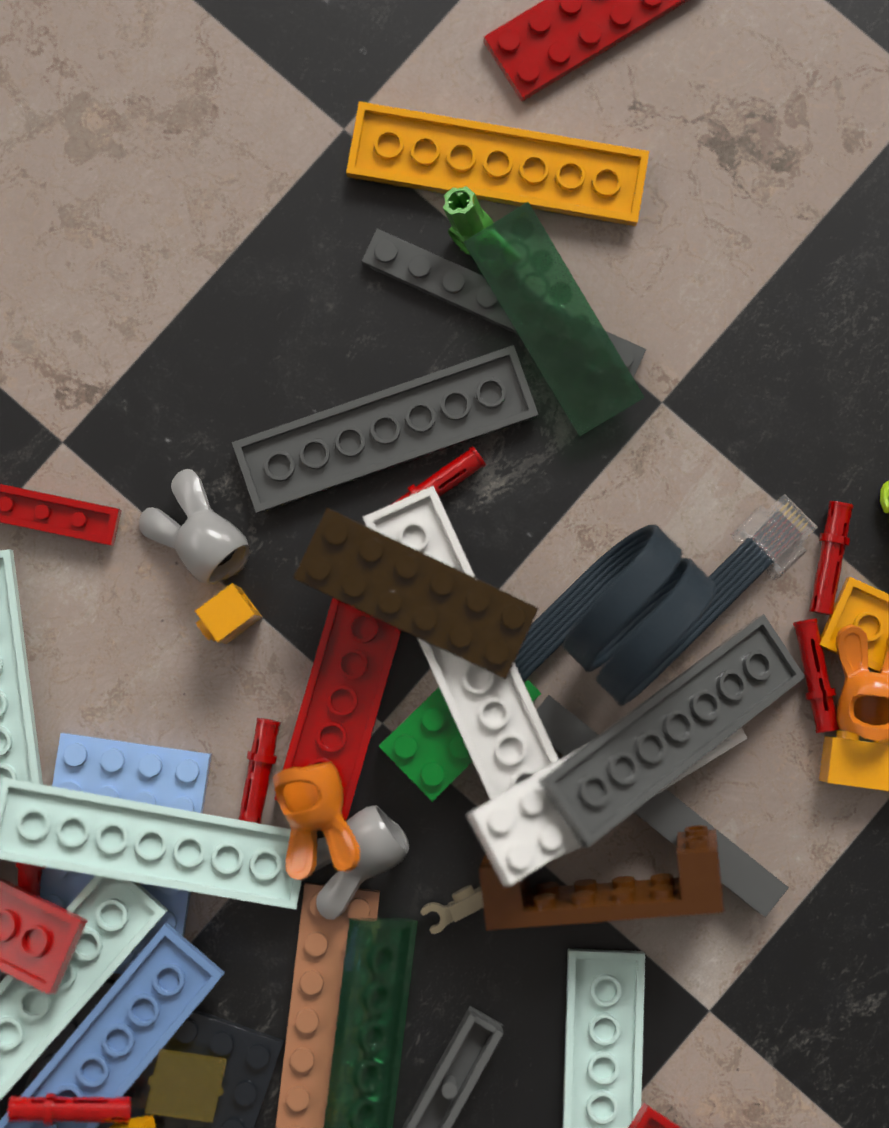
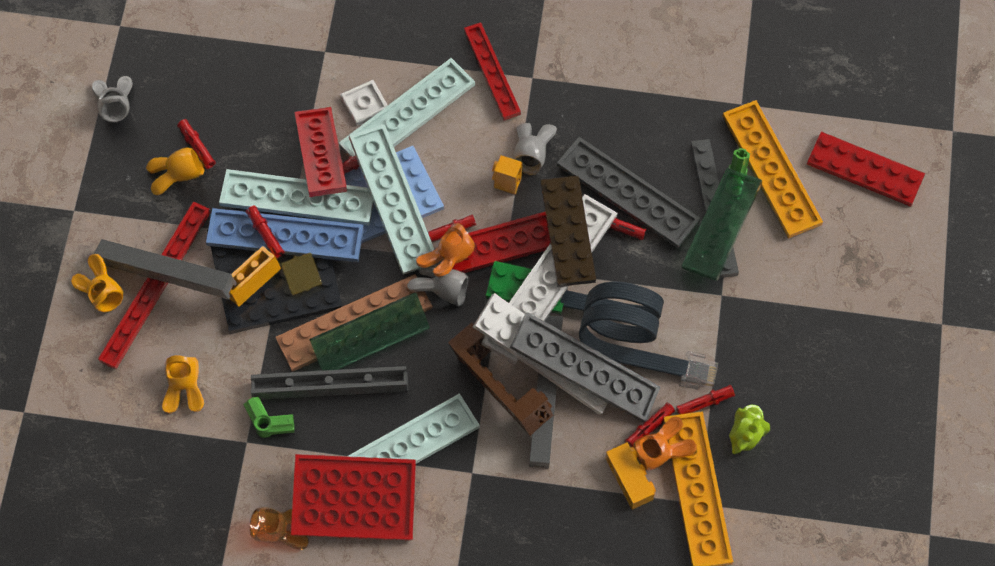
camera: 60 degrees right, 20 degrees down
(465, 903) = (443, 337): dark tan plate -> none

